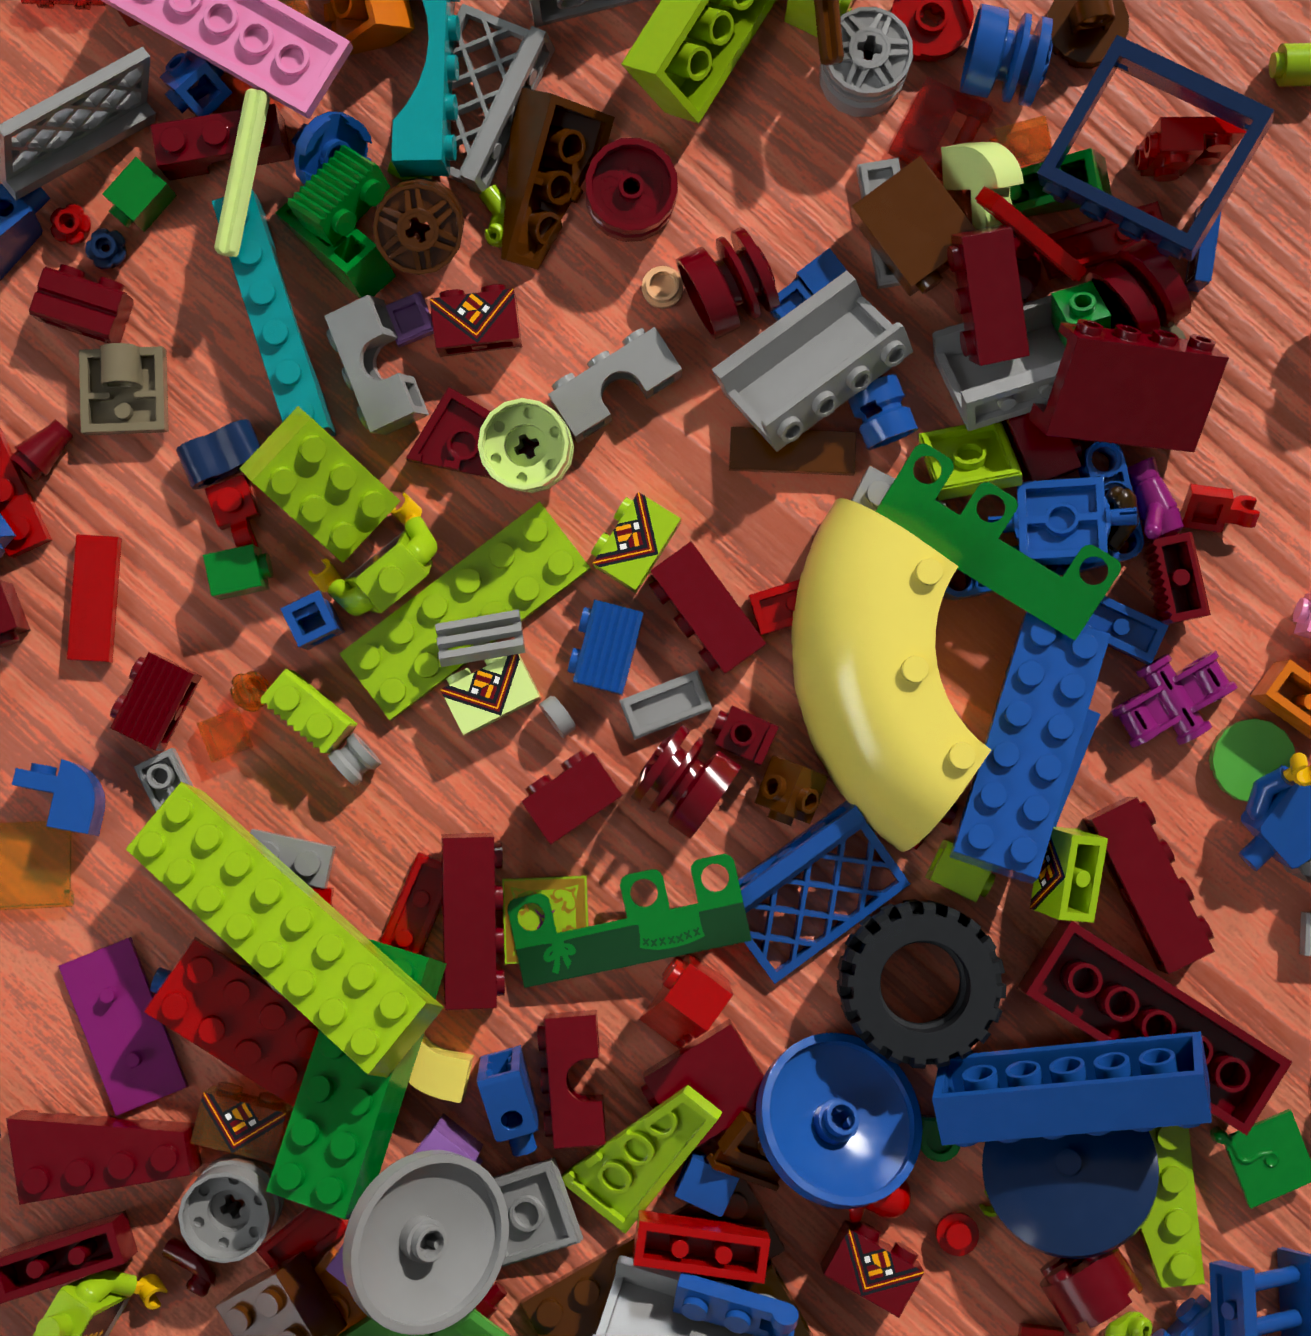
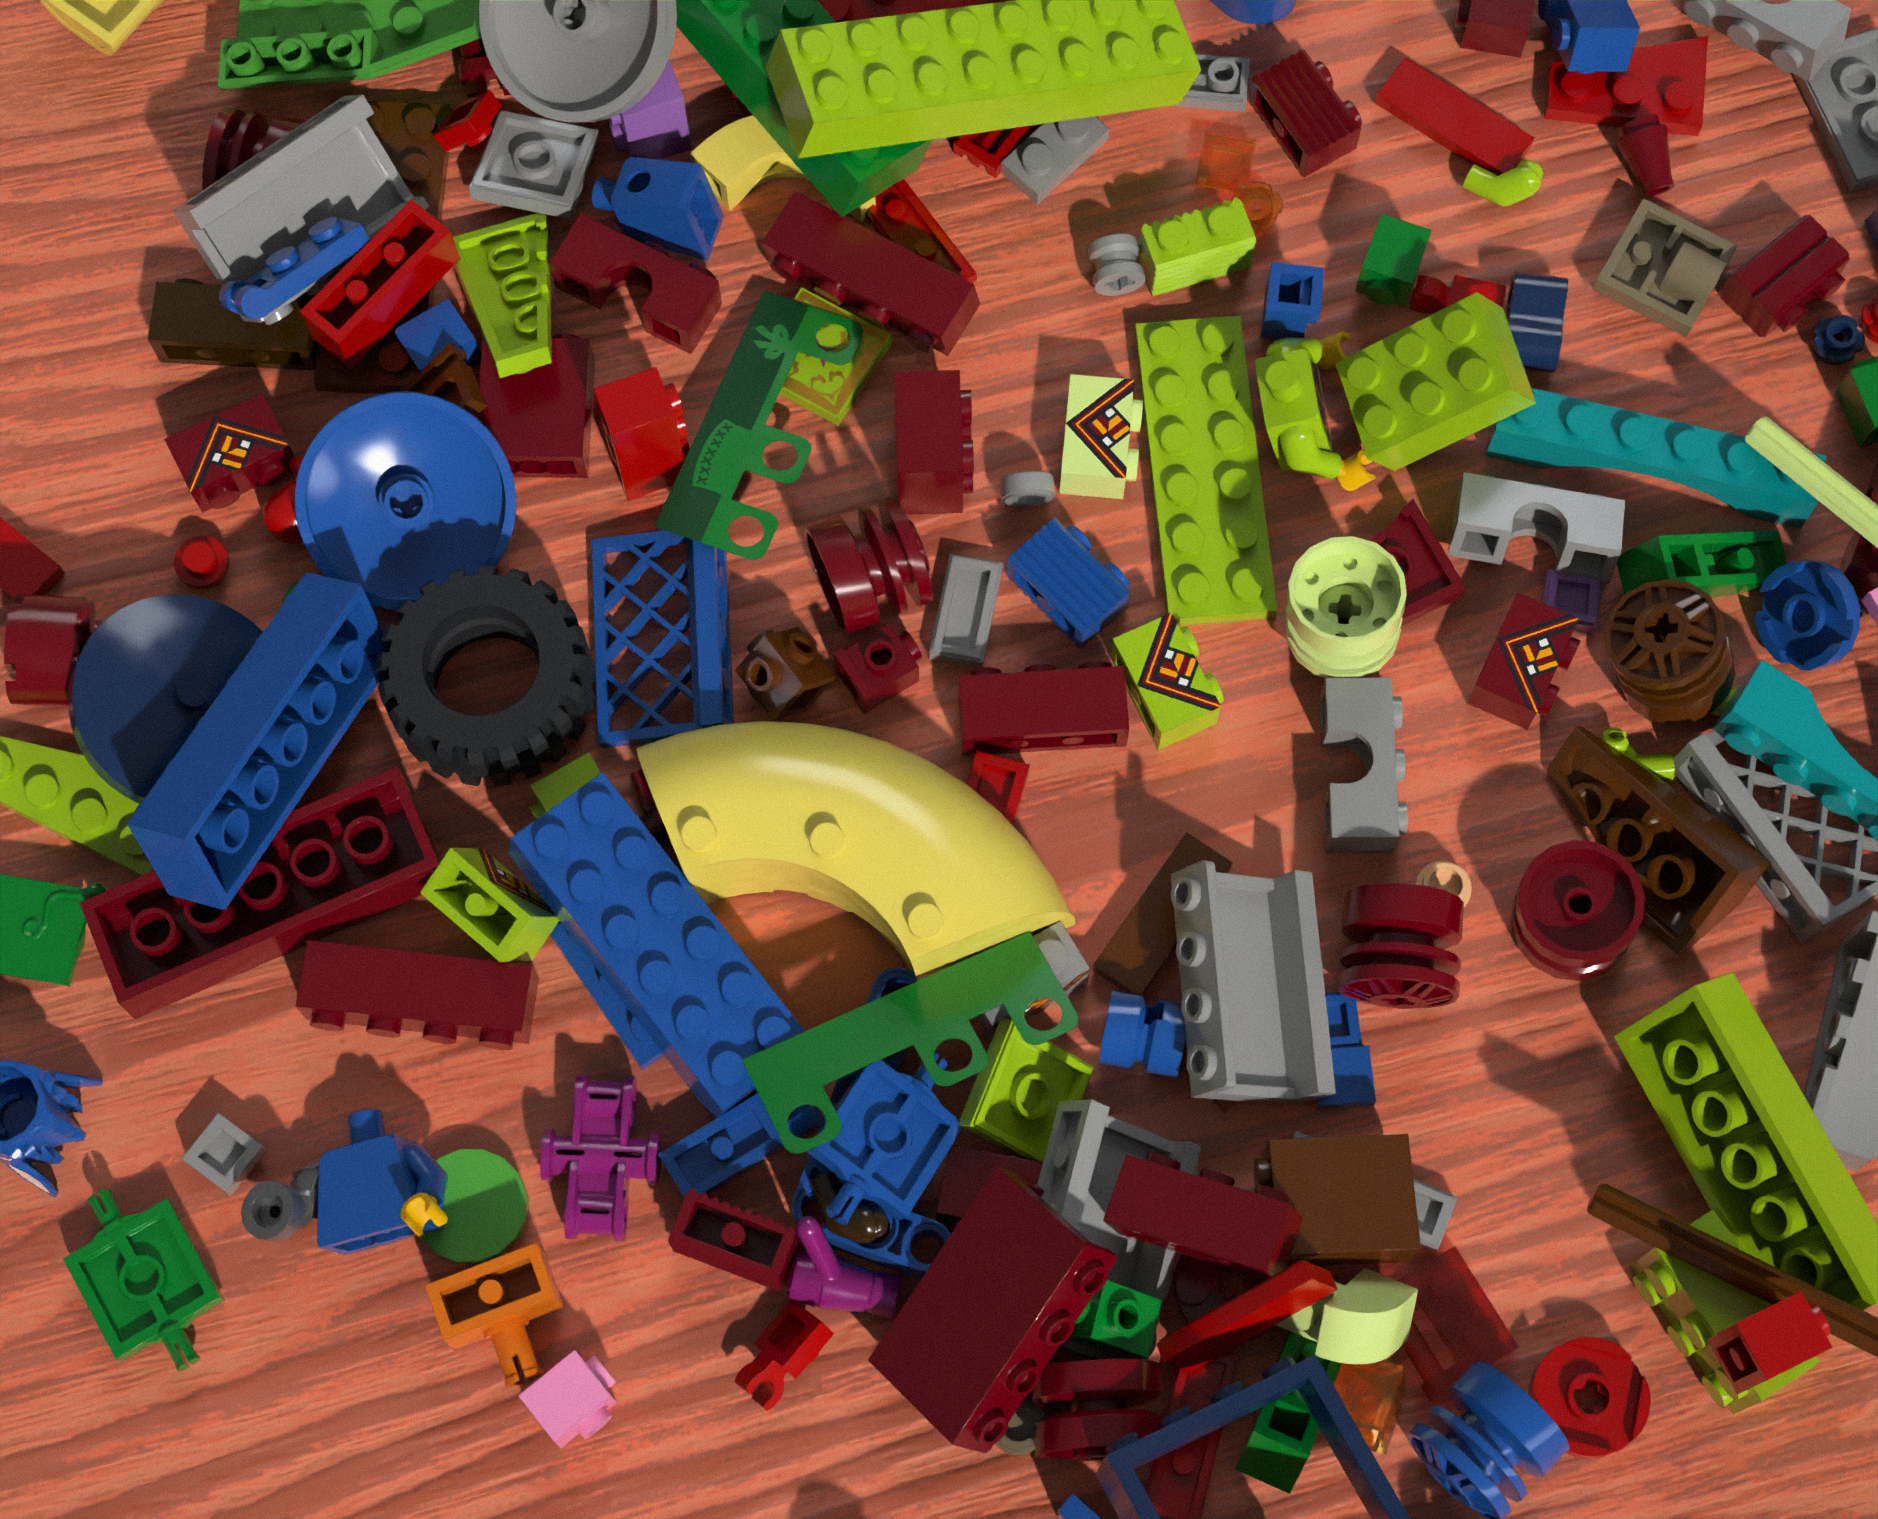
camera: 120 degrees right, 15 degrees down
(127, 530) = (1508, 187): none -> lime arm
(339, 195) = (1755, 586): green brick -> none
(480, 632) = (1182, 414): light grey tile -> none
(529, 1279) = (468, 121): none -> red plate
(863, 85) = (1549, 1291): light grey wheel -> none

